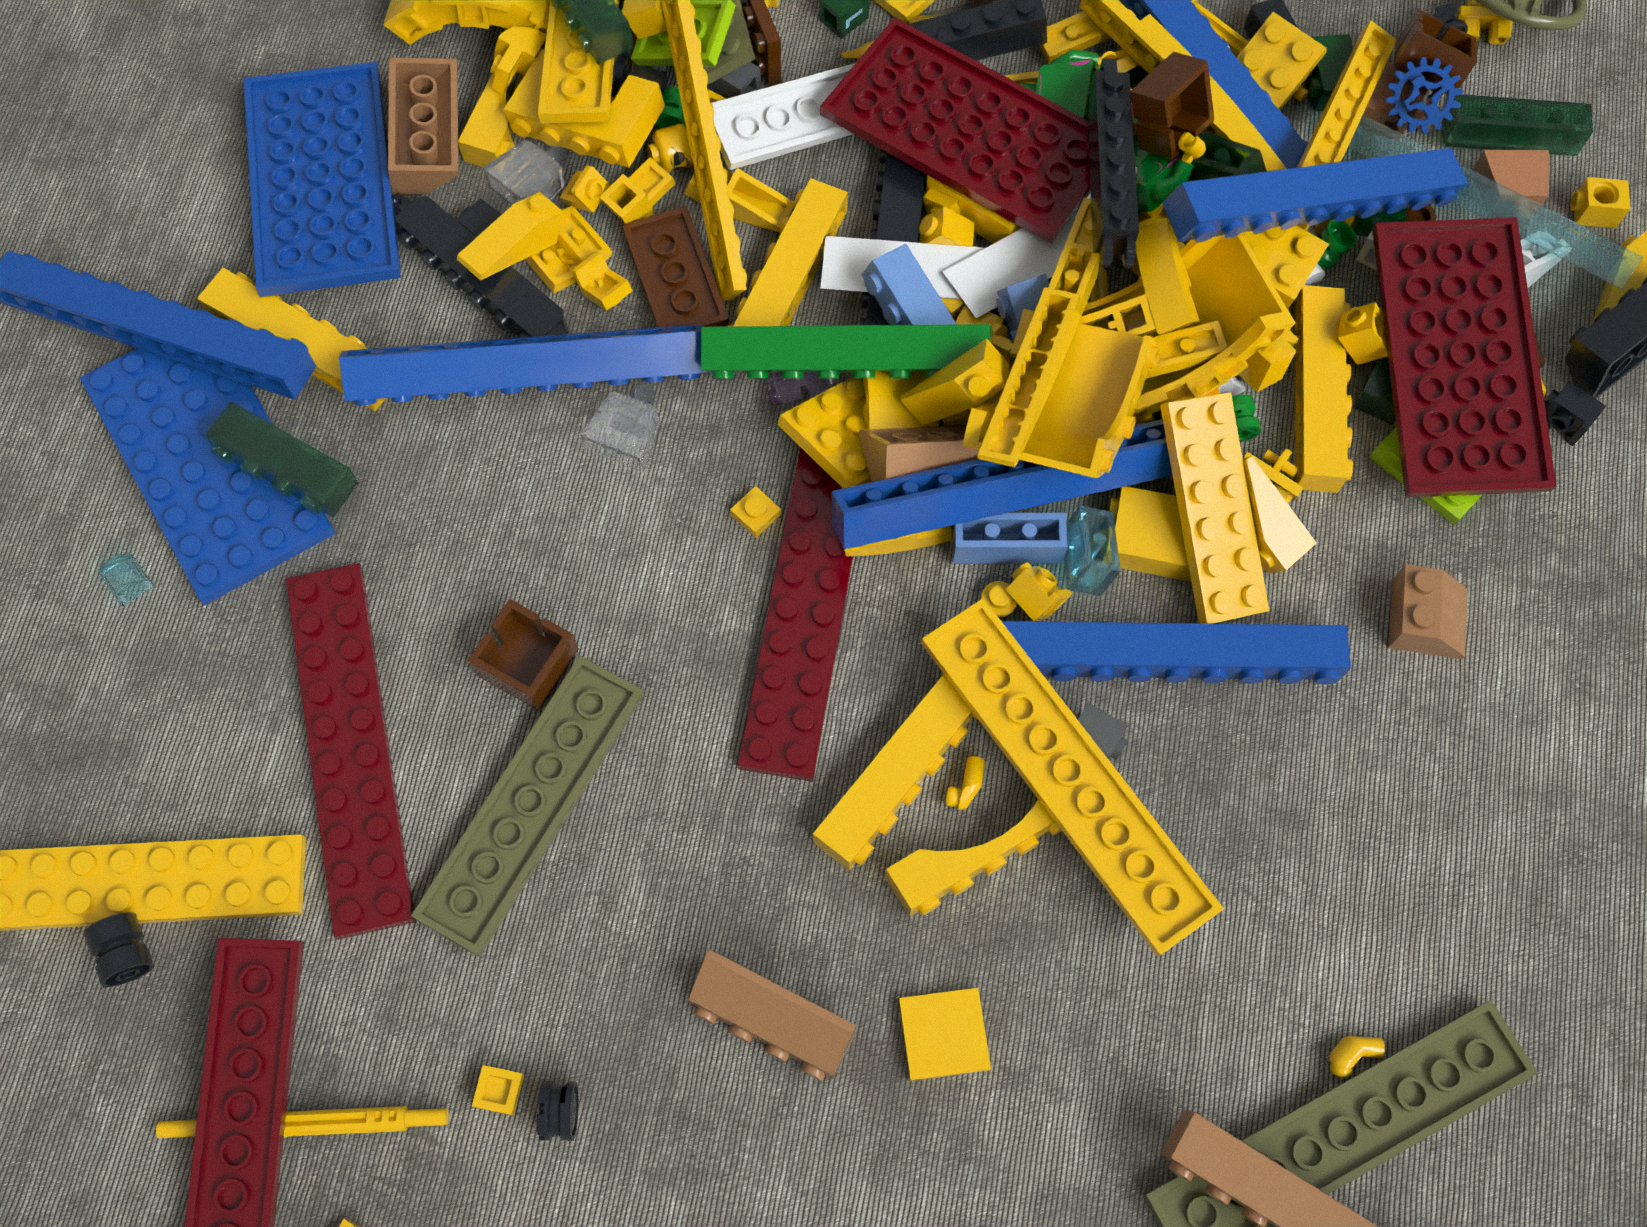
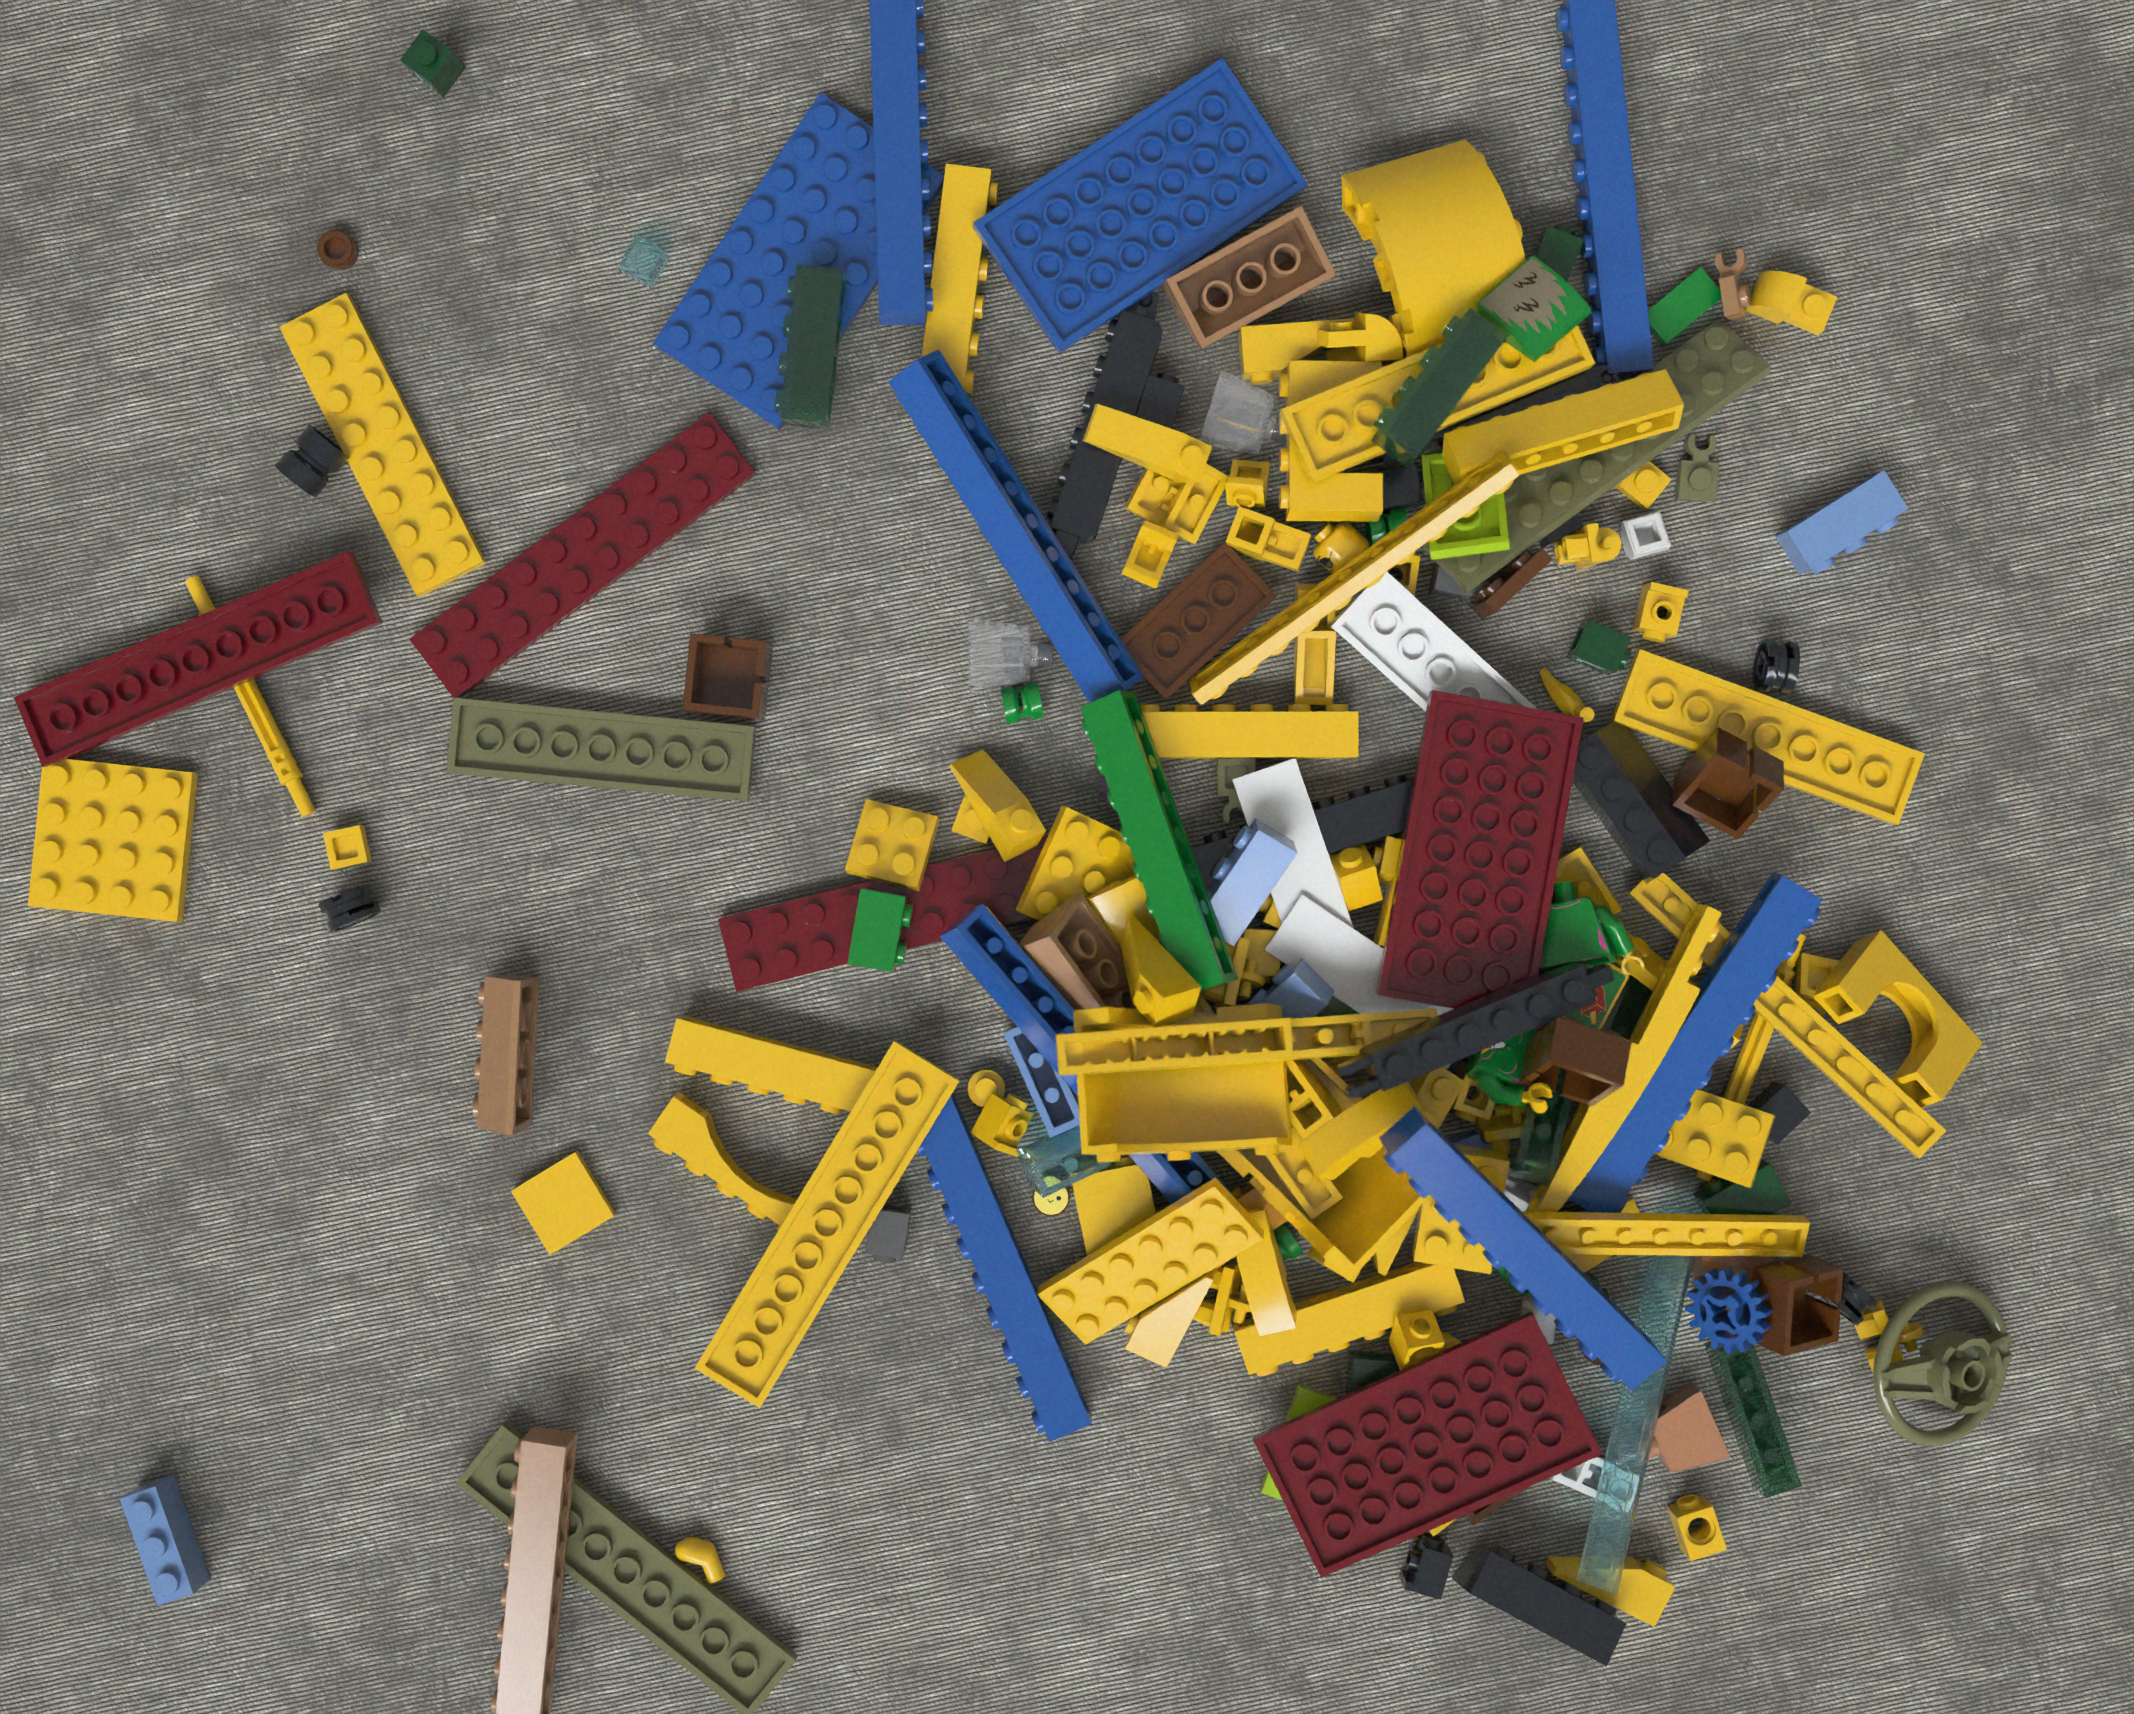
camera: 70 degrees right, 20 degrees up
(673, 430) = (1030, 699): none -> green wheel
(744, 583) = (892, 844): none -> yellow plate
(758, 473) = (999, 805): none -> yellow slope
(814, 616) = (879, 930): none -> green brick
(827, 300) = (1227, 771): none -> olive plate
(971, 784) = (791, 1136): yellow arm -> none
(1123, 588) = (1052, 1204): none -> light yellow tile
(1276, 424) = (1266, 1282): none -> yellow slope
(1428, 612) = (1146, 1493): medium nougat slope -> none

